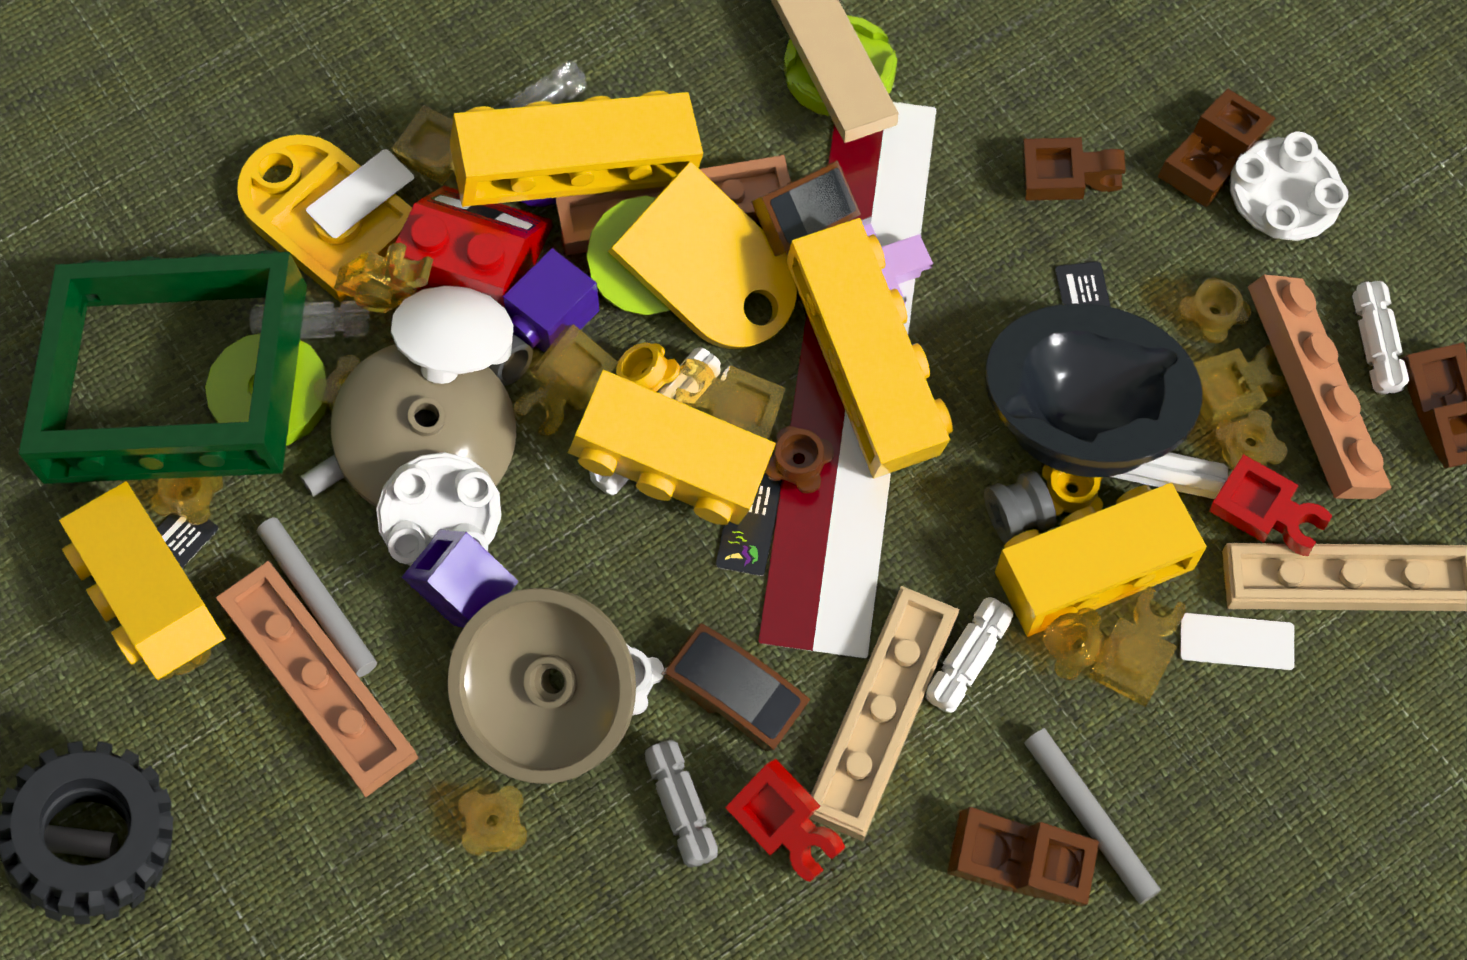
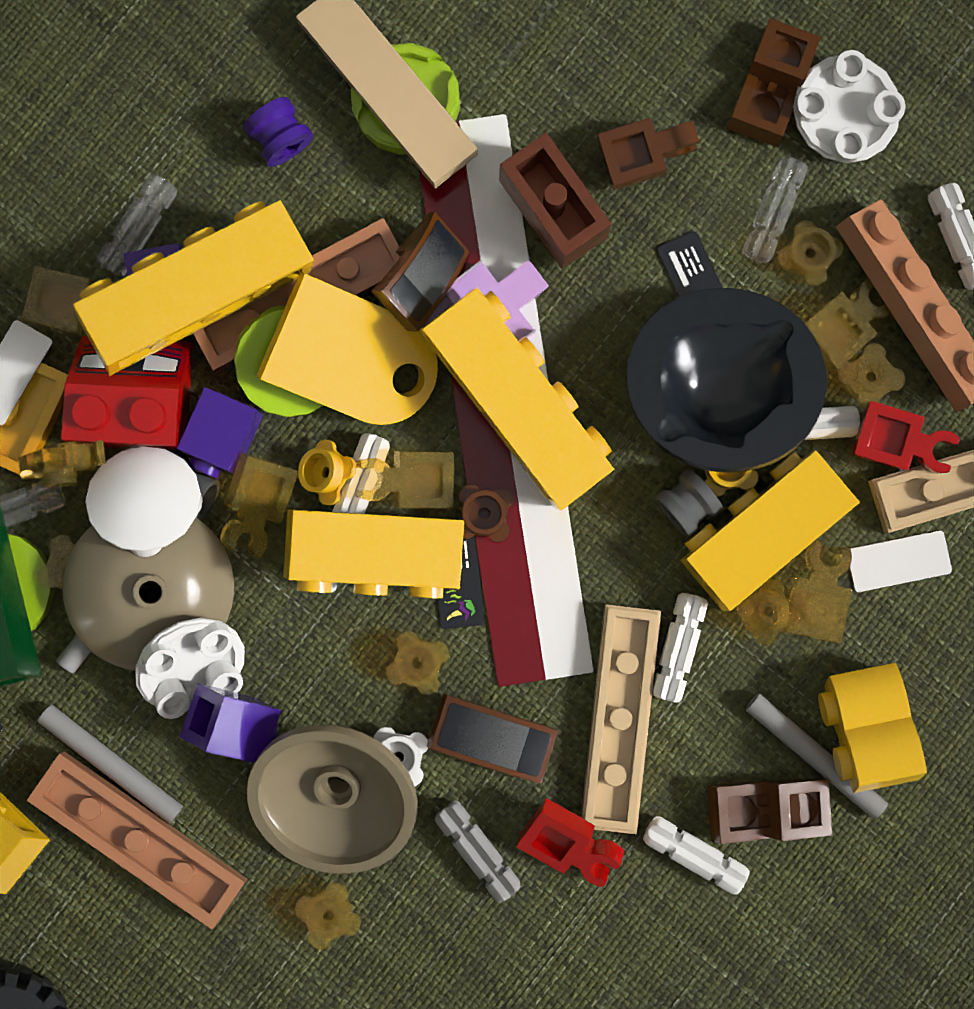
camera: 20 degrees left, 20 degrees up
(679, 570) = (403, 670): none -> clear yellow plate
(704, 55) = (278, 131): none -> dark purple wheel
(926, 881) = (696, 855): none -> white axle
(961, 182) = (554, 200): none -> copper brick
(1164, 793) = (873, 728): none -> yellow brick
(1188, 260) = (775, 209): none -> clear axle

